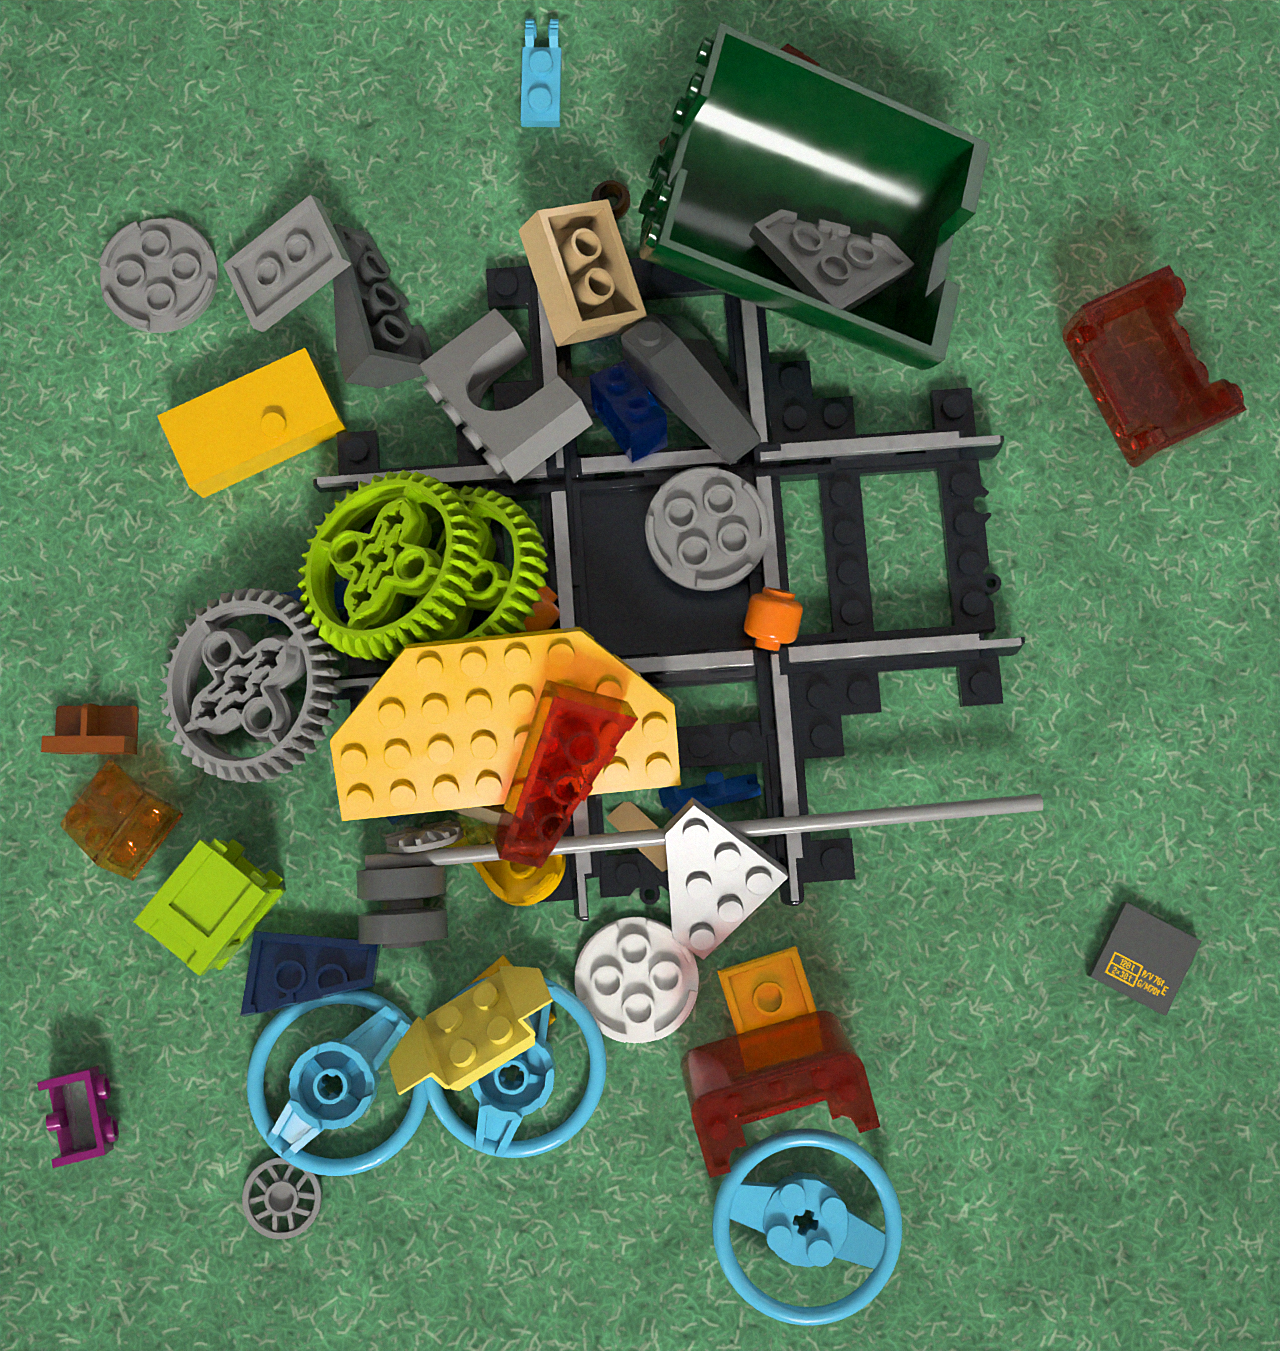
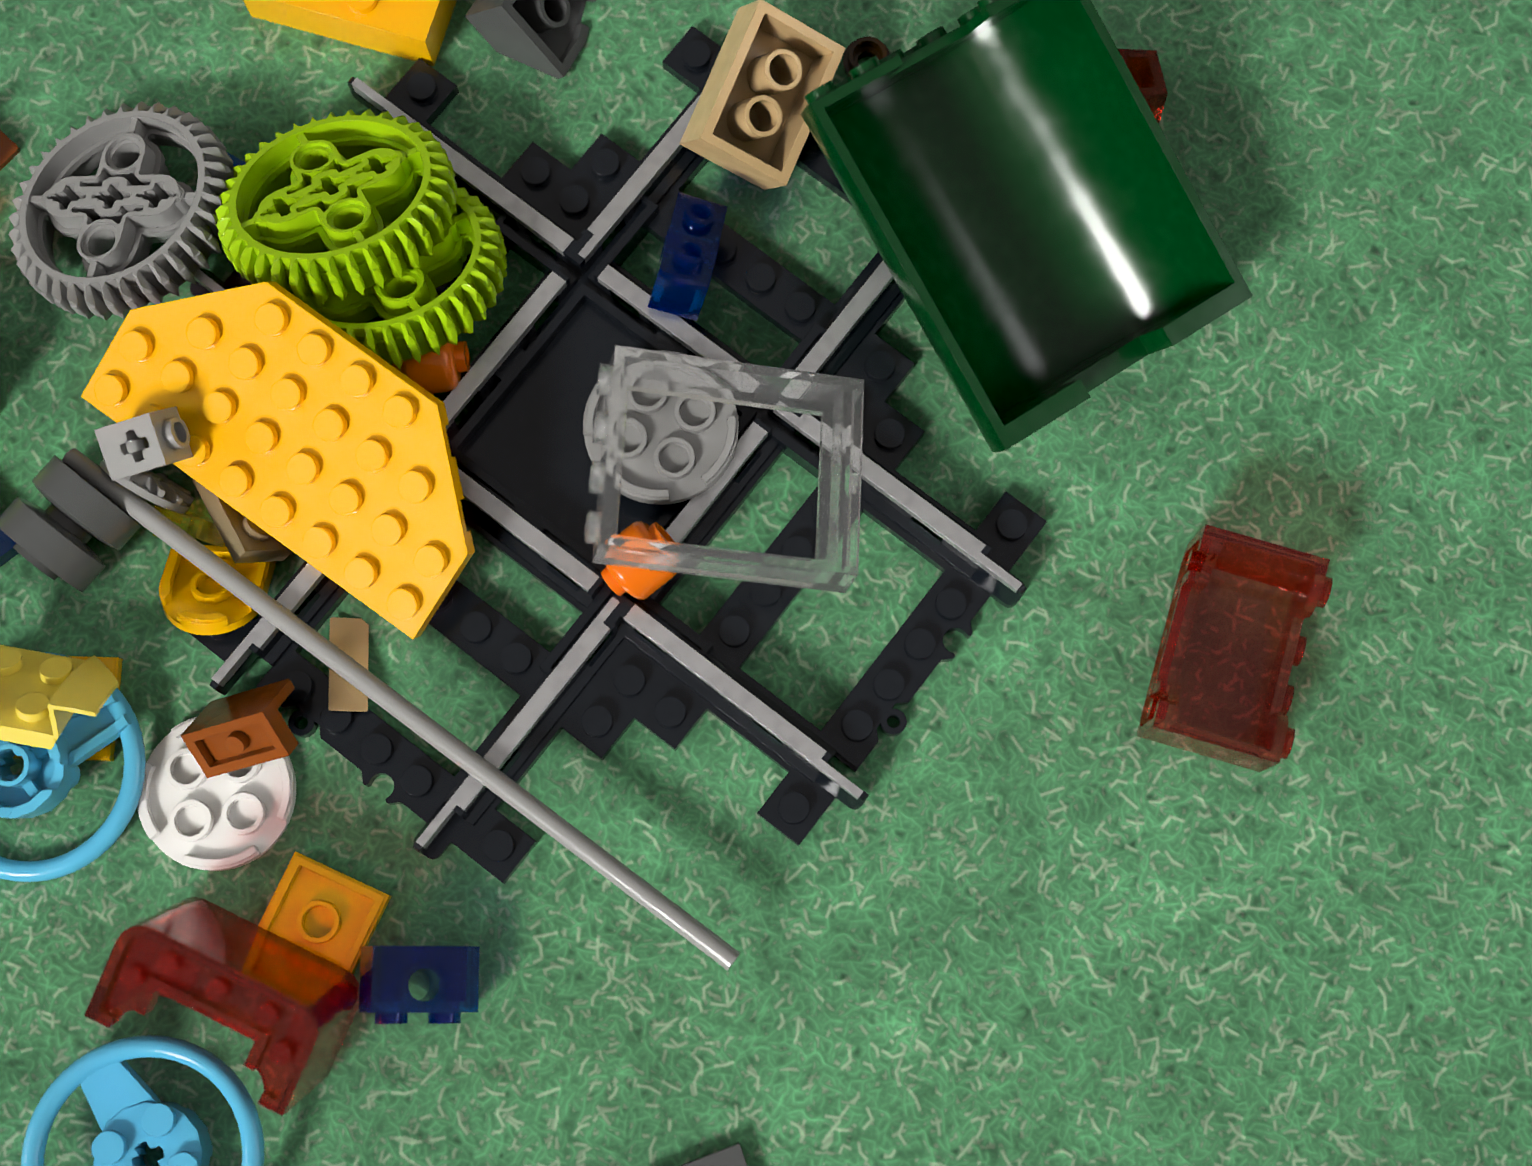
camera: 40 degrees right, 5 degrees down
(414, 827) = (144, 443): none -> light grey brick
(515, 437) = (578, 195): light grey arch -> none
(562, 756) = (313, 505): clear red wedge -> none
(626, 928) = (241, 730): none -> dark orange panel
(690, 380) = (780, 273): dark grey wedge -> none
(713, 793) = (445, 682): blue piece -> none
(713, 877) = (363, 752): plate -> none
(829, 259) = (1004, 281): light grey plate -> none
(837, 457) = (832, 397): none -> clear window
(845, 986) = (451, 976): none -> clear blue brick

